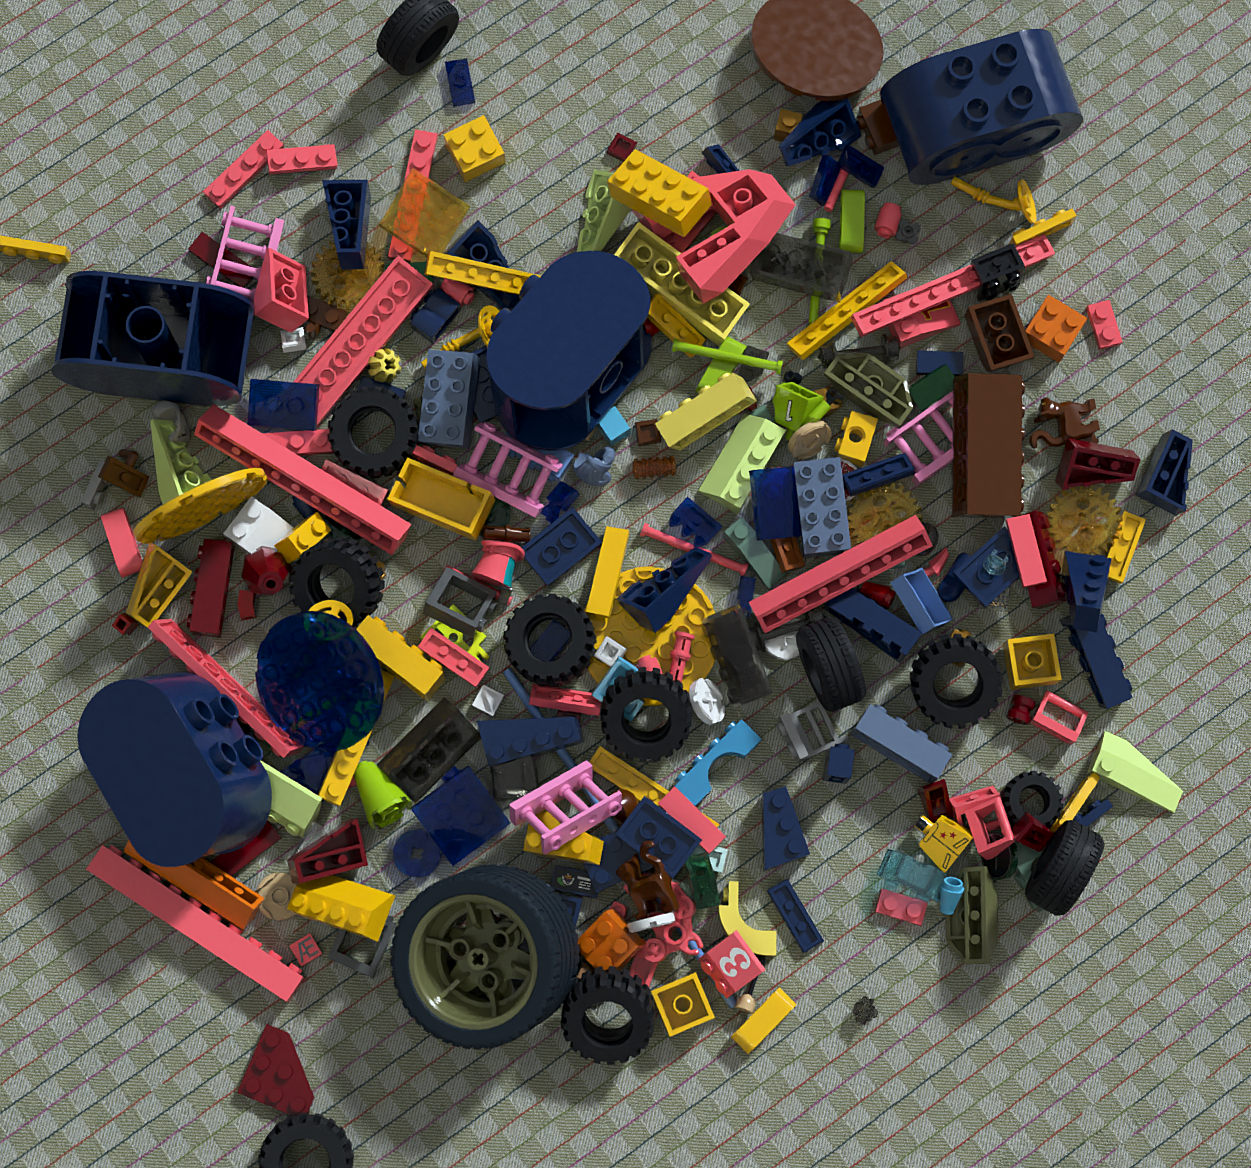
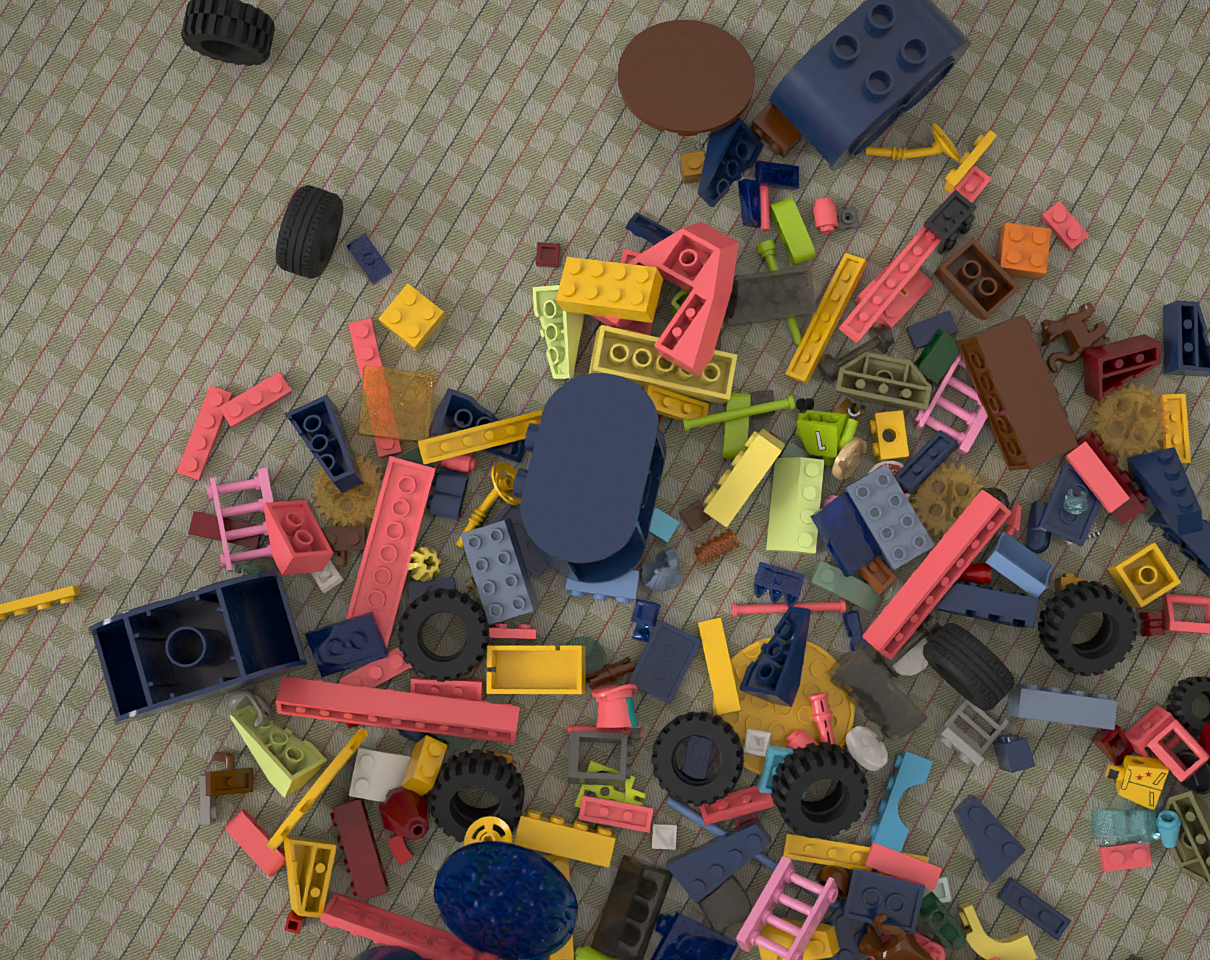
camera: 20 degrees left, 5 degrees up
(510, 492) = (585, 634): bright pink fence -> none

